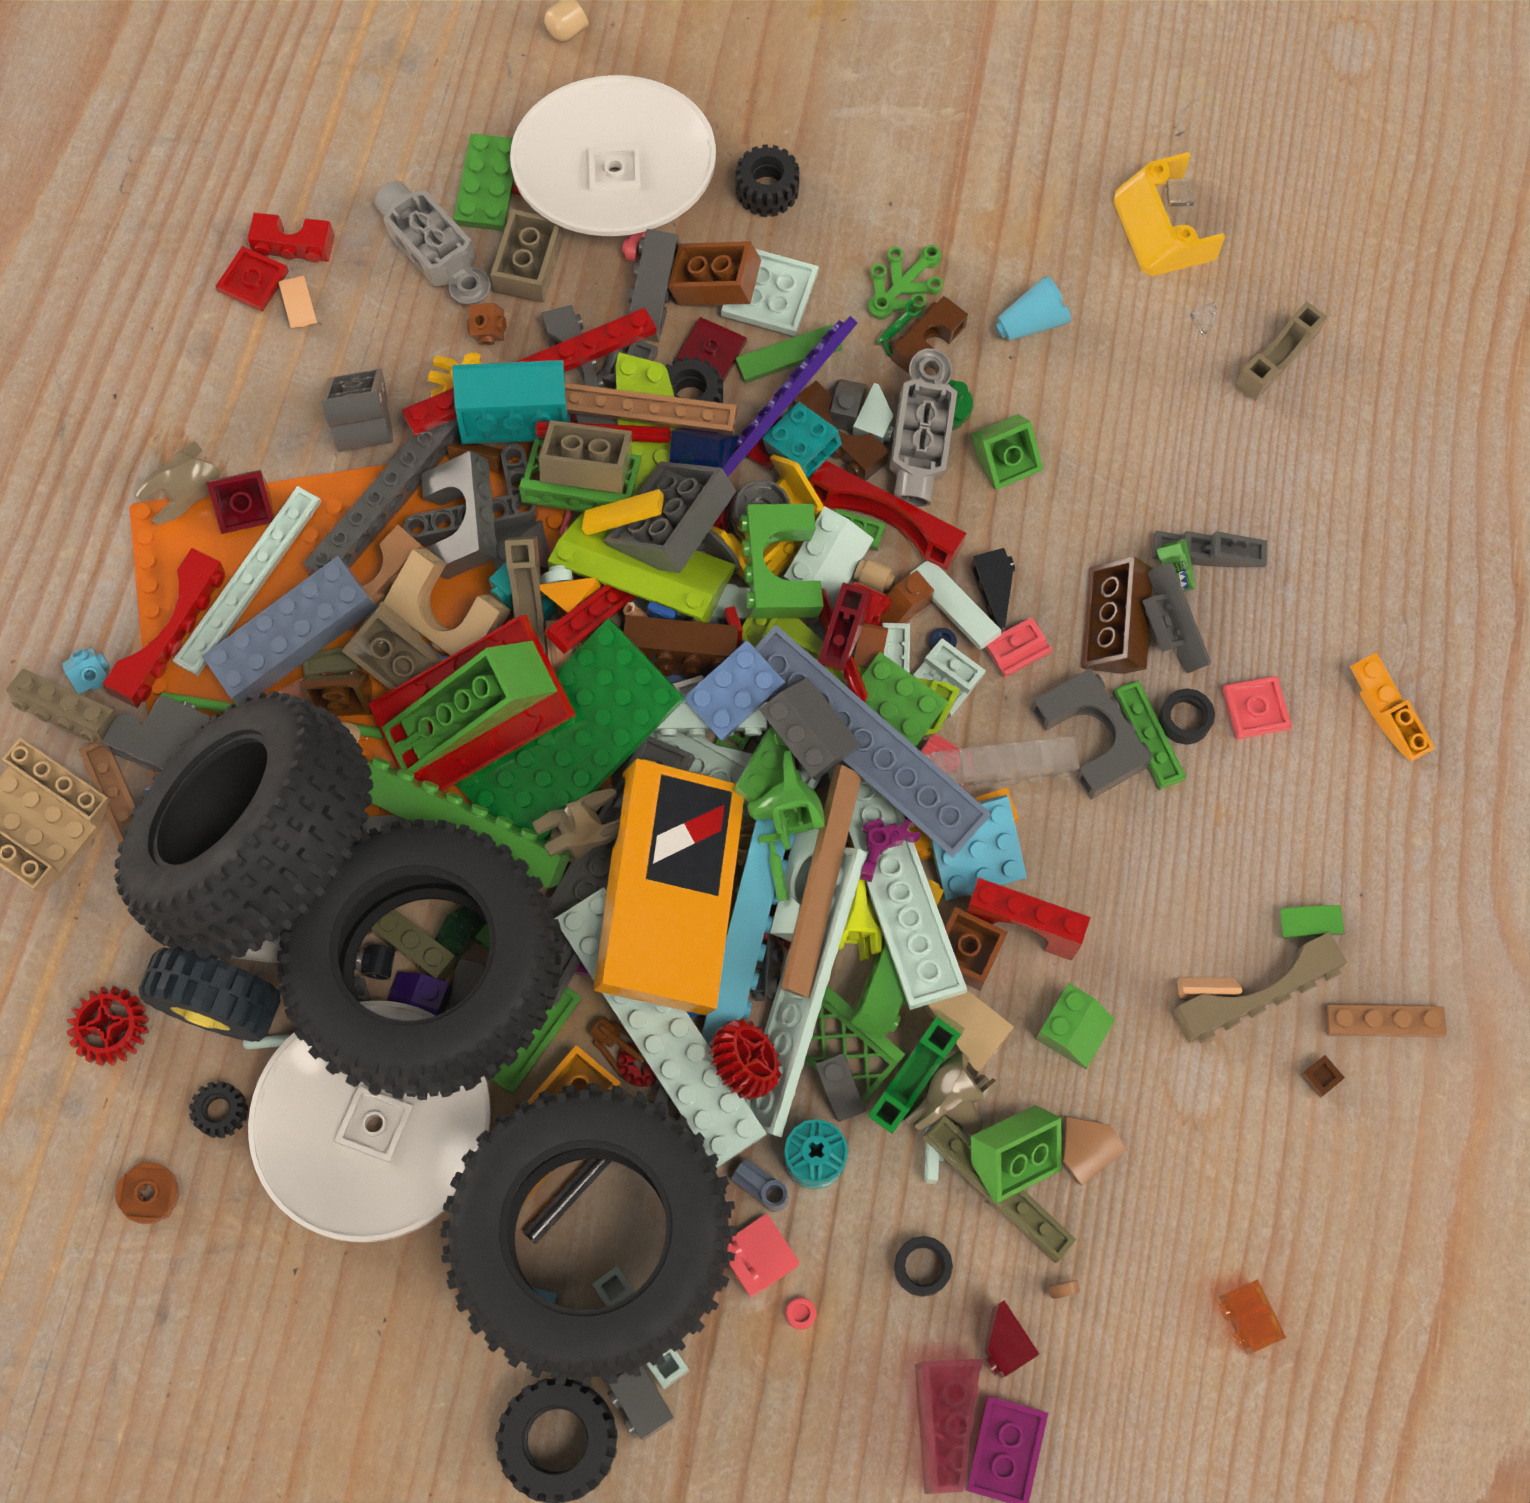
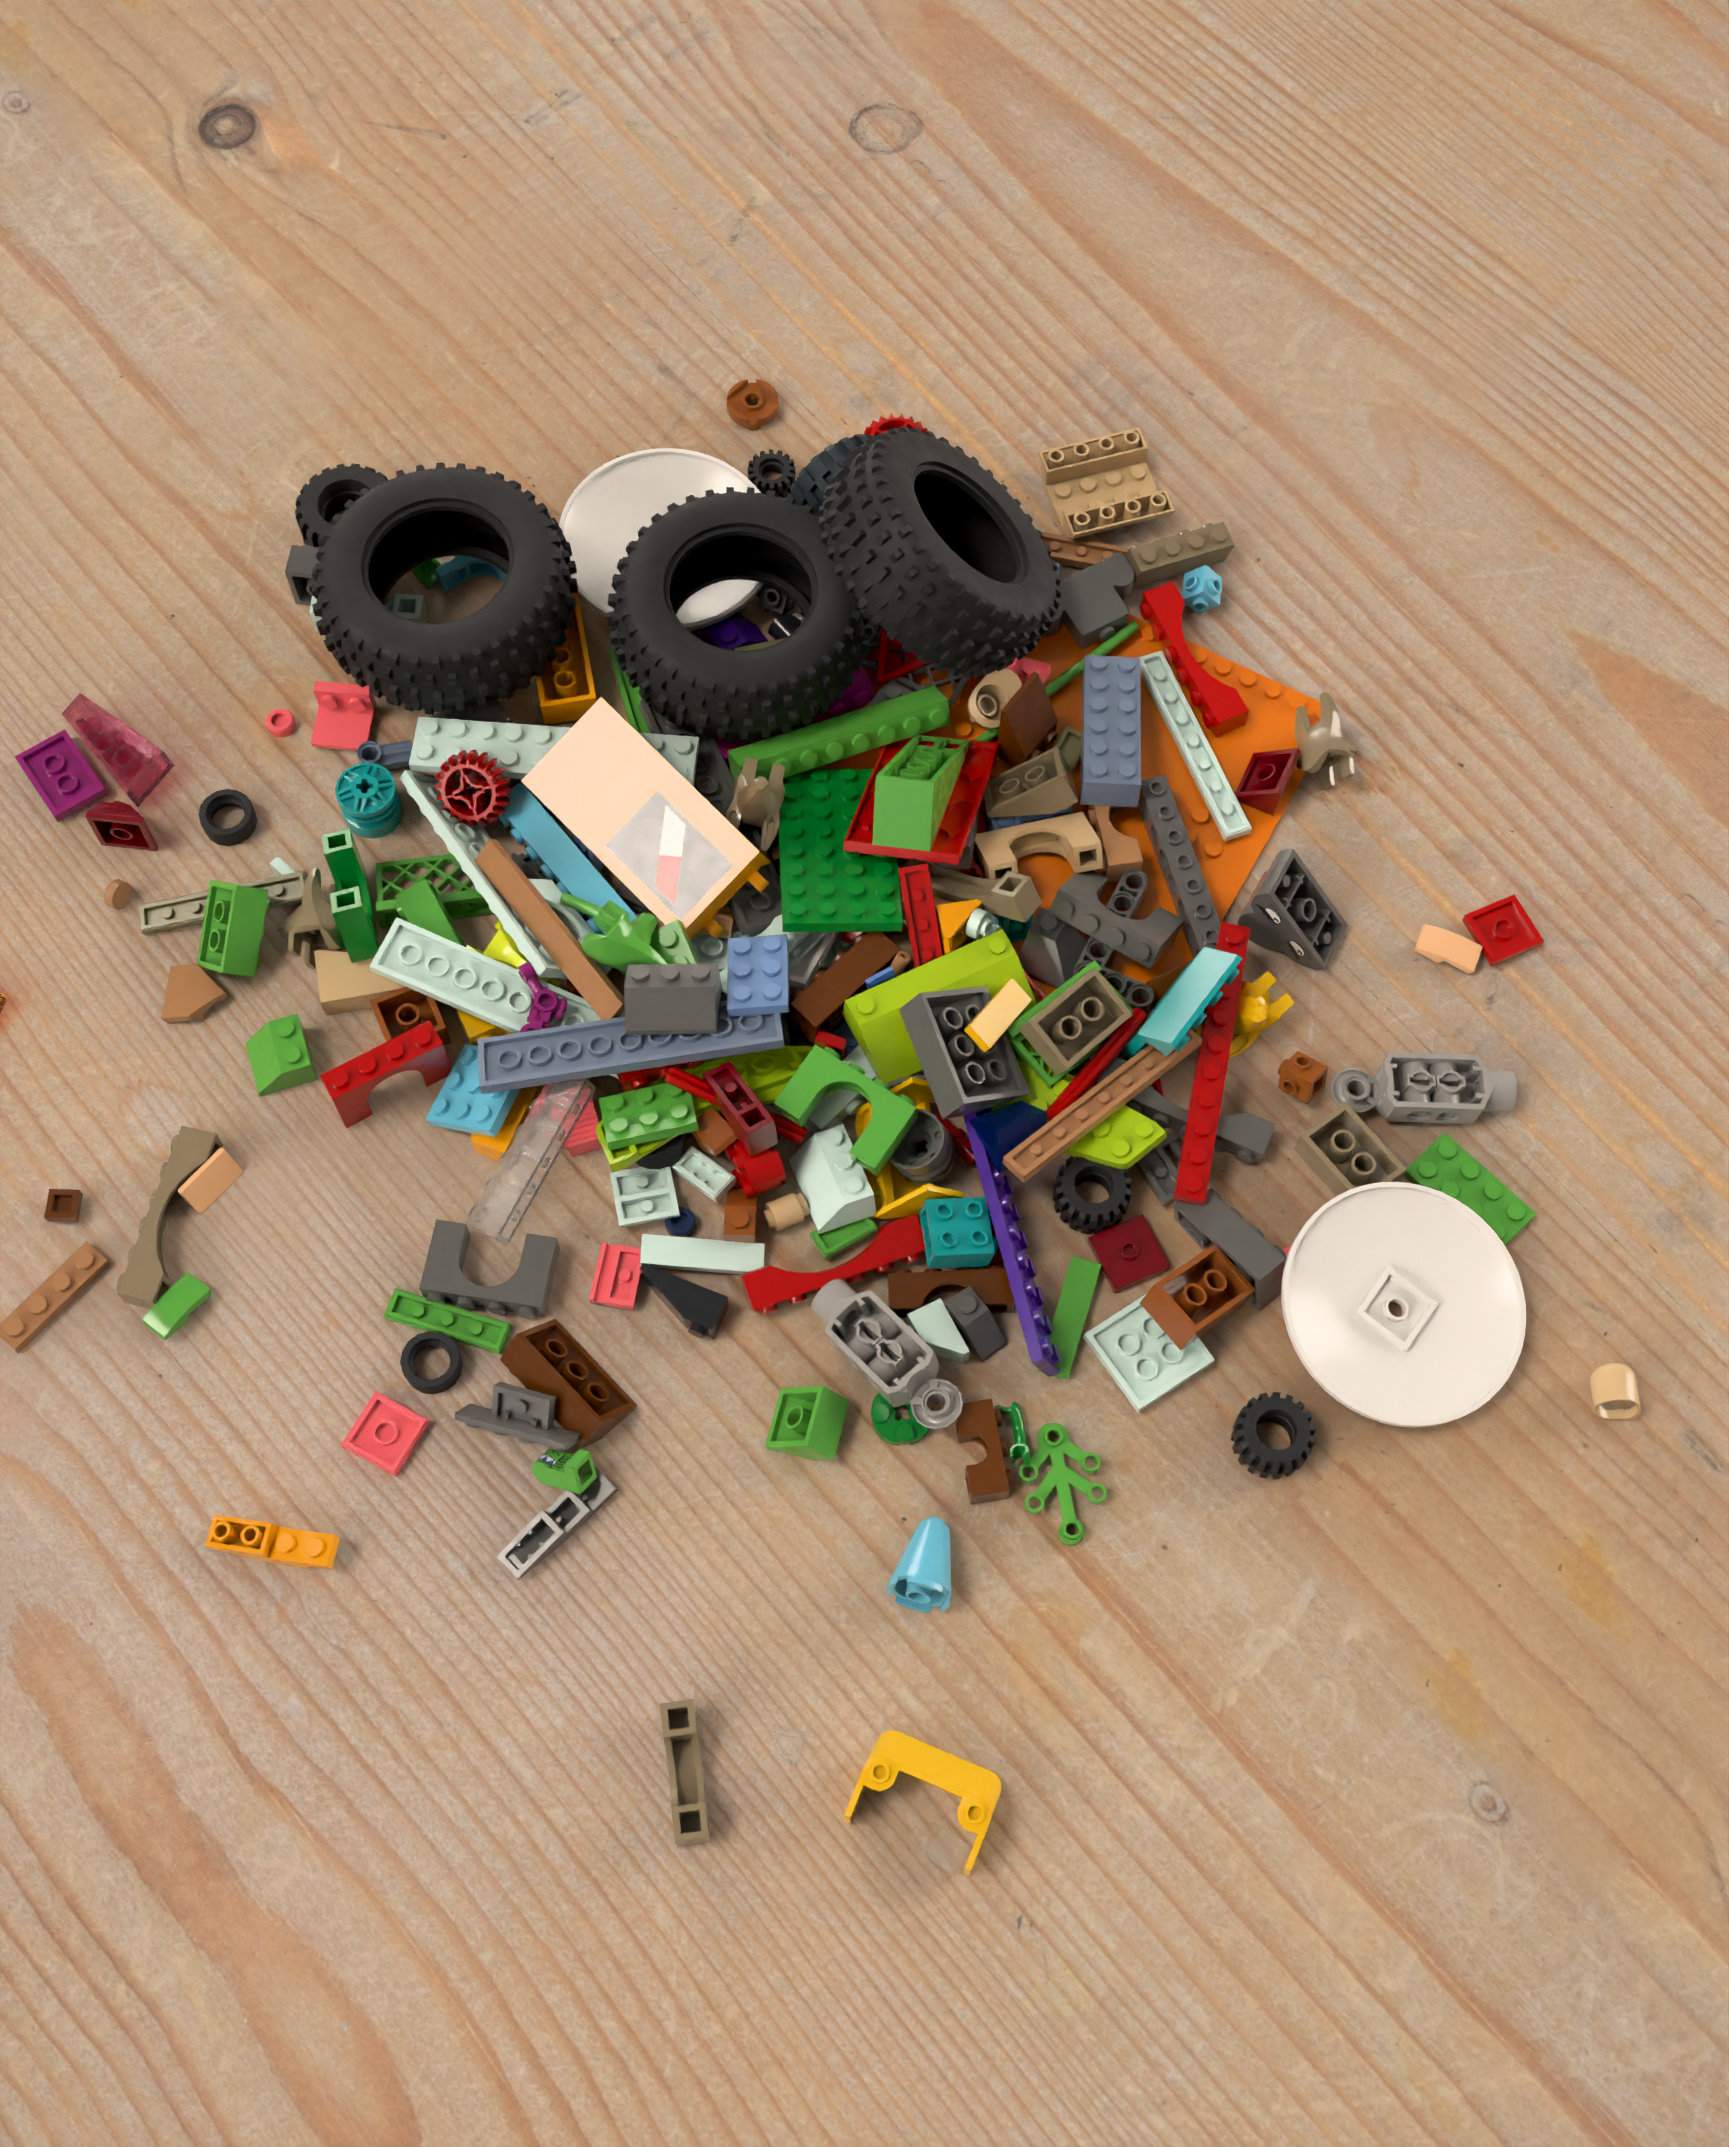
camera: 130 degrees right, 5 degrees down
(310, 243) = (1538, 969): red arch -> none
(841, 1087) = (402, 855): dark grey slope -> none

